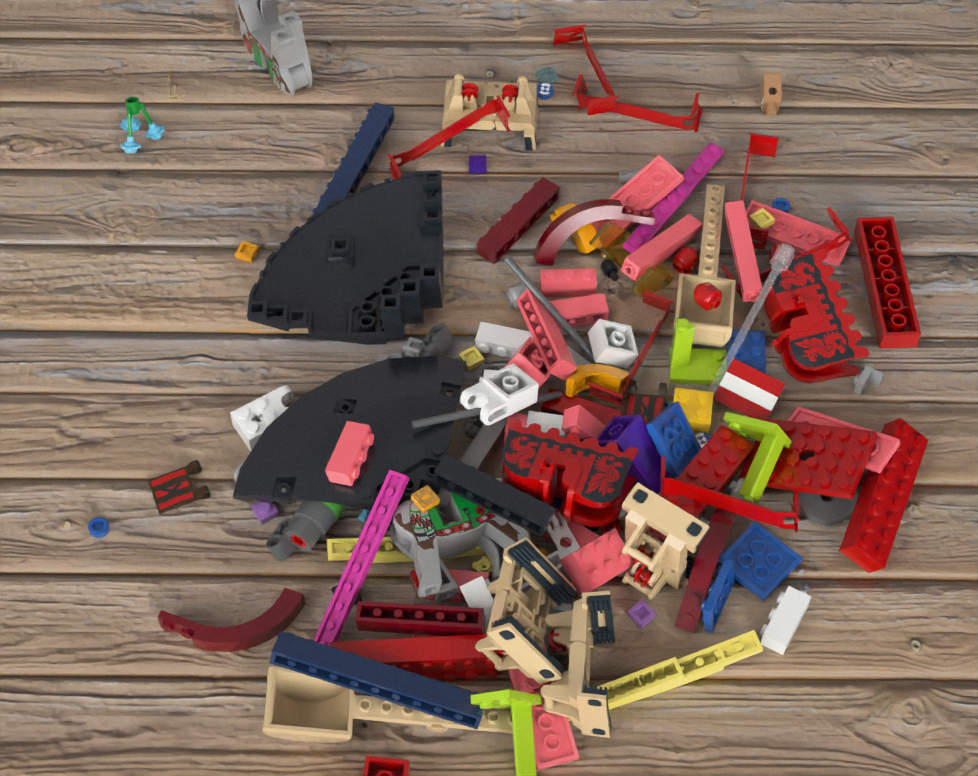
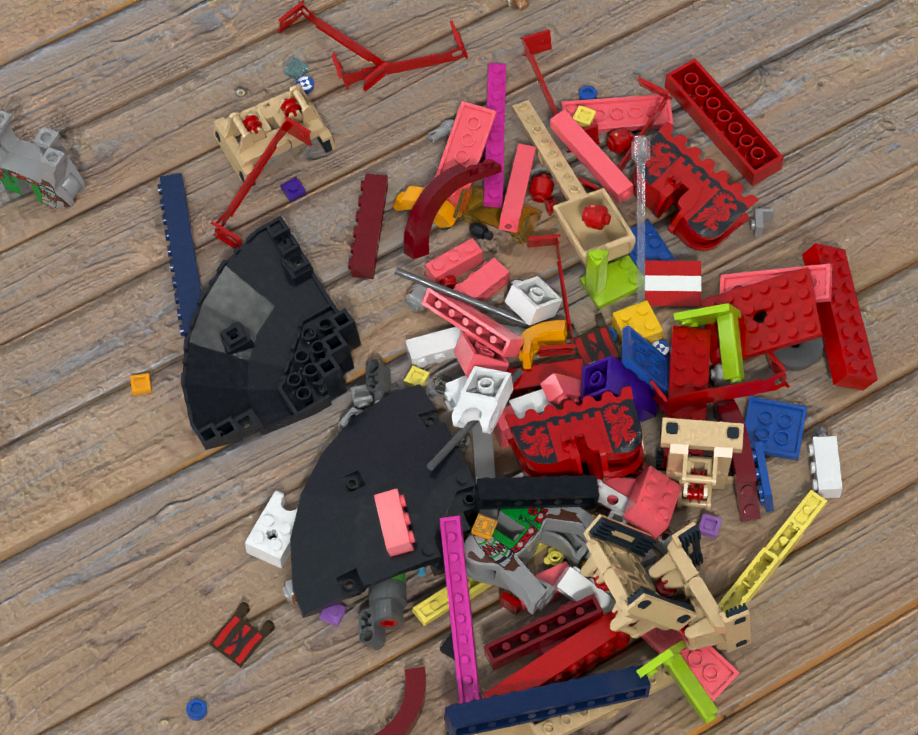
camera: 30 degrees left, 5 degrees up
(552, 294) = (449, 281): none -> red bush

